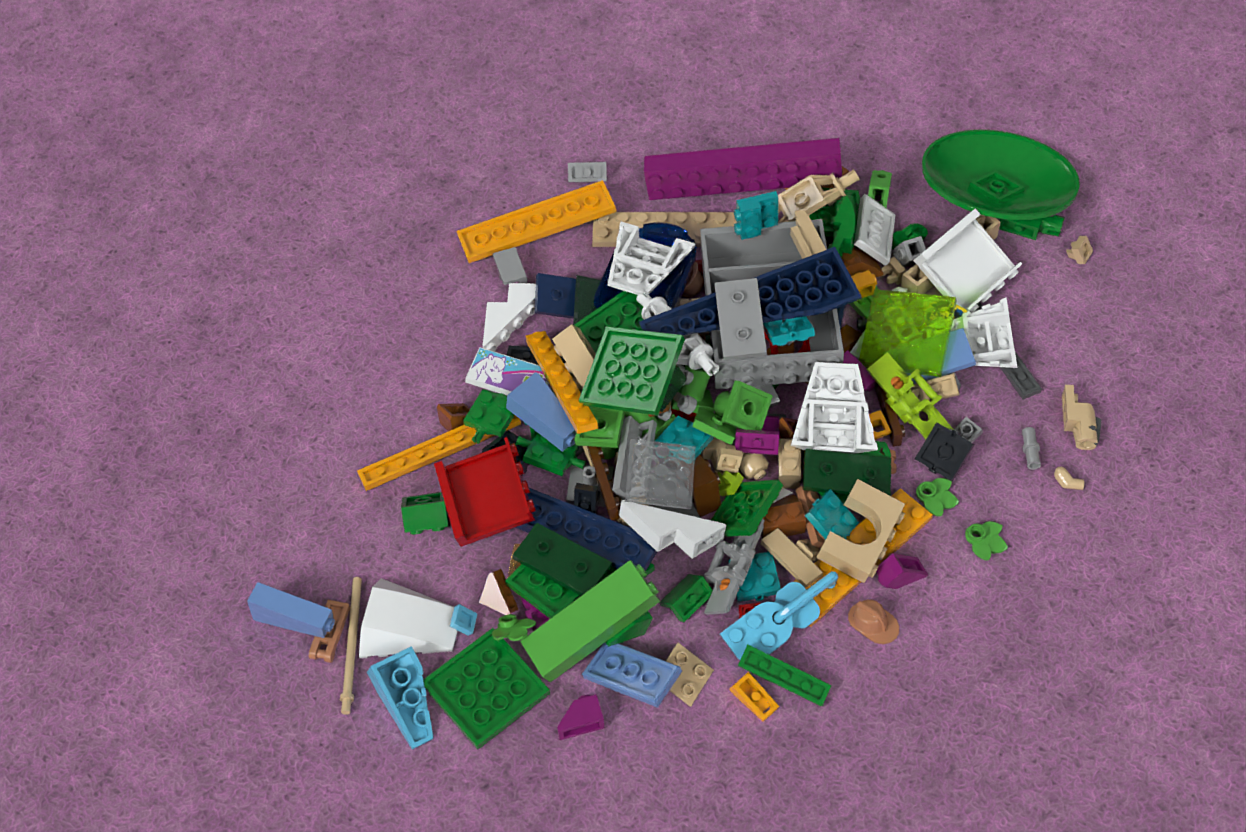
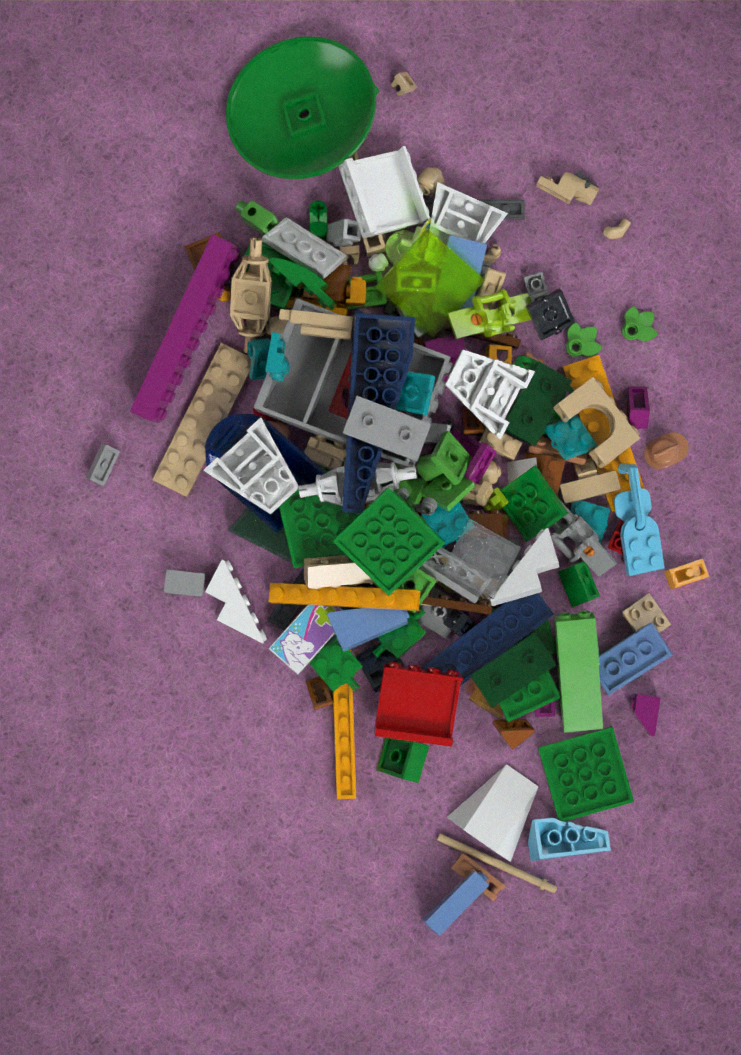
camera: 70 degrees left, 30 degrees up
(463, 619) = (519, 767): medium azure plate -> none
(512, 628) = (551, 731): bright green plate -> none
(536, 221) = (142, 536): light orange plate -> none
(555, 295) = (237, 557): dark blue plate -> none
(784, 675) = (686, 544): green plate -> none
(968, 385) = (493, 254): none -> tan arm
(1012, 301) = (428, 180): none -> tan head
(1031, 448) = (576, 242): light grey pin -> none

